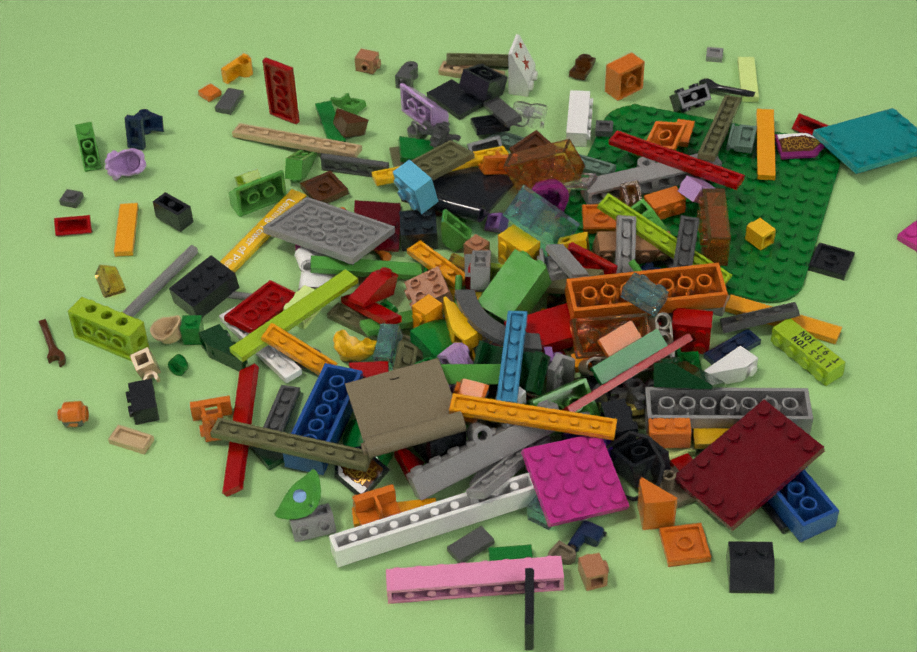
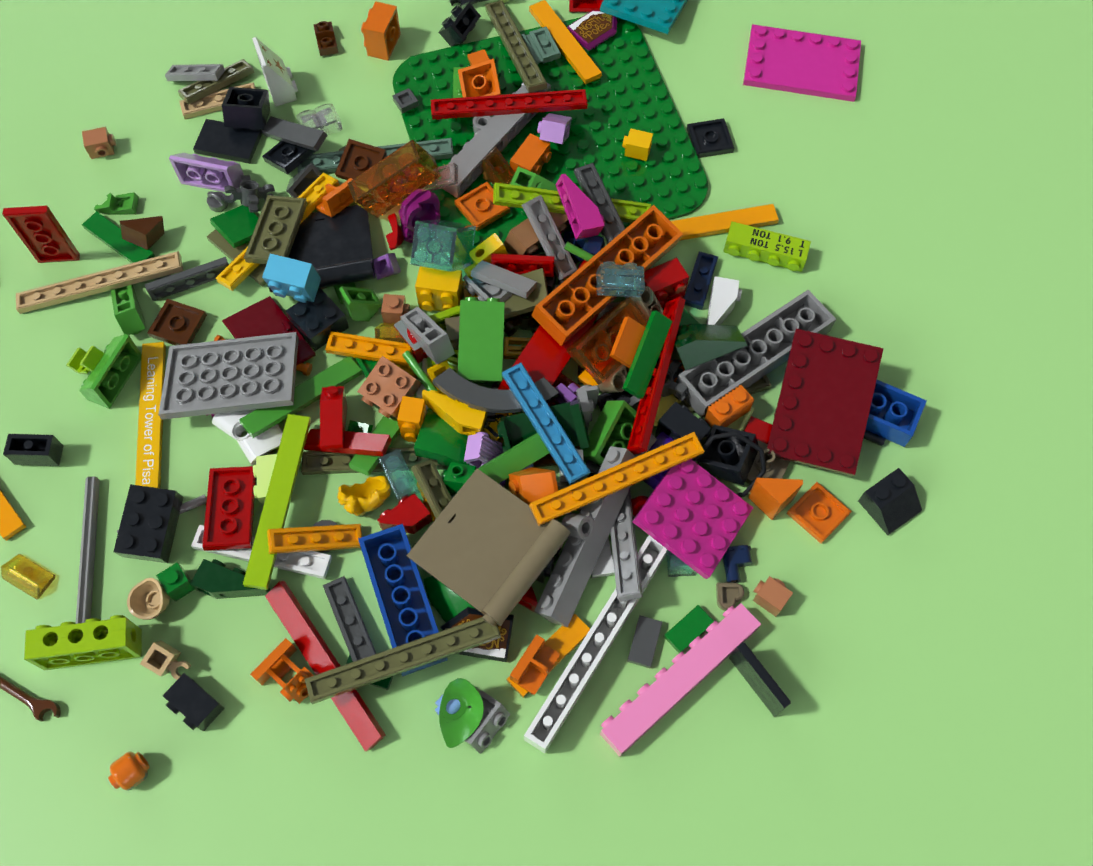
camera: 40 degrees left, 20 degrees up
(131, 439) = (215, 753): tan tile -> none
(178, 365) = (196, 633): green tile -> none
(407, 74) = (155, 139): dark grey leg -> none
(468, 47) = (196, 72): none -> light grey tile
(579, 117) = (371, 101): white brick -> none
(662, 244) = (580, 210): none -> dark pink slope
(705, 436) = (765, 386): yellow tile -> none
(714, 226) = (589, 145): clear orange brick -> none
(759, 317) = (705, 234): dark grey tile -> none

